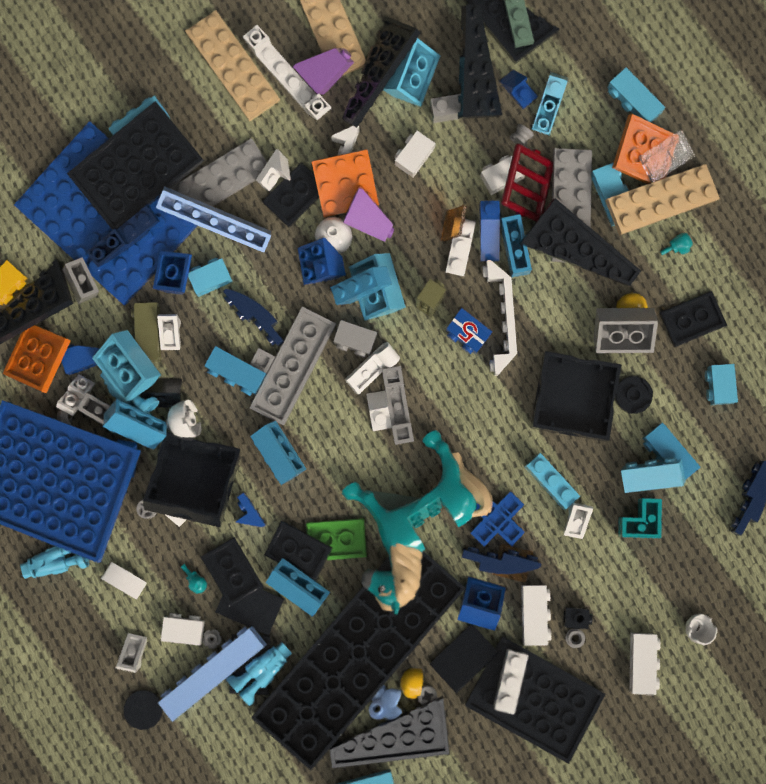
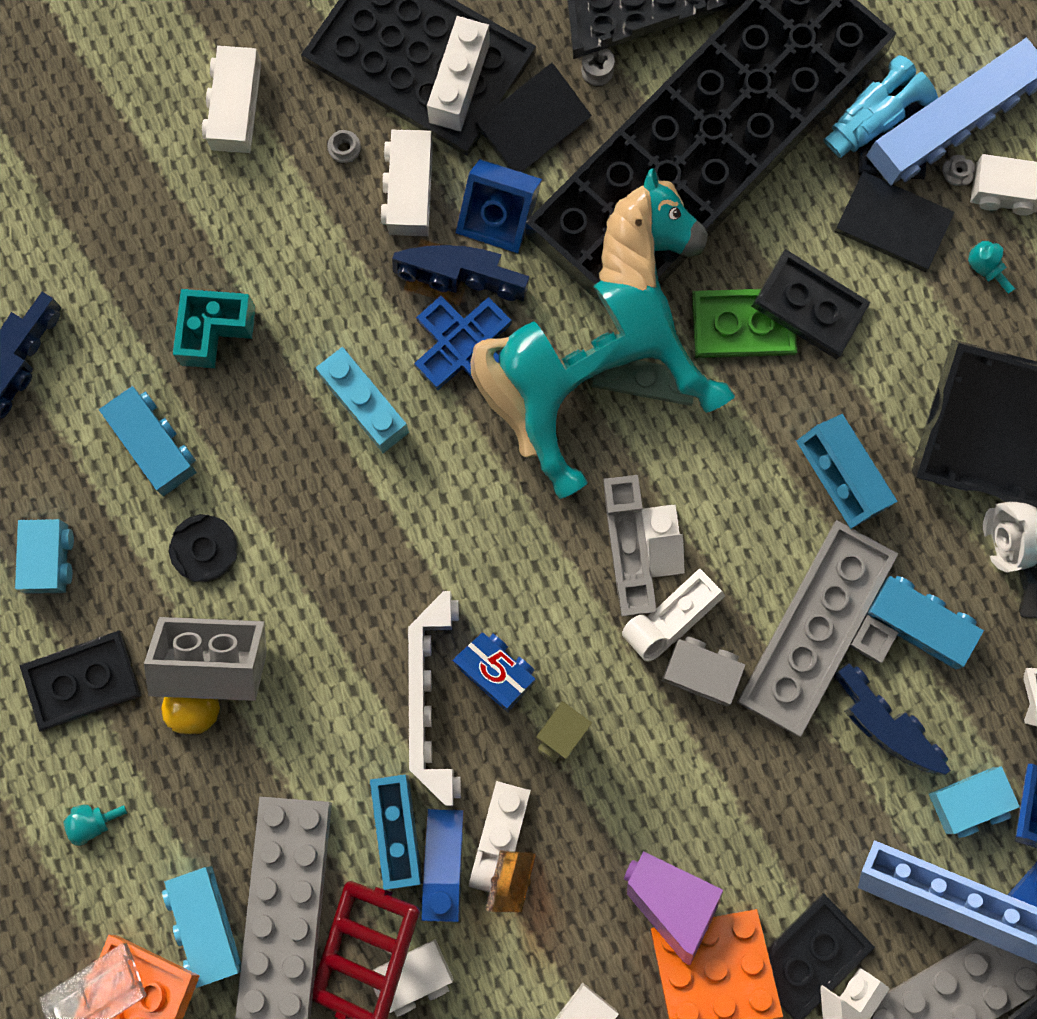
camera: 175 degrees left, 5 degrees down
(232, 572) = (926, 274): black tile -> none
(253, 517) = (890, 365): blue slope -> none
(297, 587) = (813, 241): dark azure brick -> none
(320, 262) = (765, 820): blue slope -> none
(335, 232) = (741, 870): white cylinder -> none
(361, 285) = (691, 764): dark azure brick -> none
(385, 300) = (659, 768): medium azure slope -> none
(387, 700) = (664, 54): light blue plate -> none
(412, 682) = (623, 83): yellow hair -> none
(571, 240) = (291, 835): black wing -> none
(575, 396) = (307, 546): black tile -> none
(577, 520) = (322, 332): white slope -> none
(577, 618) = (338, 175): black brick -> none
(653, 475) = (183, 397): medium azure brick -> none
(662, 199) = (110, 909): tan plate -> none
(706, 632) = (125, 140): white hair -> none

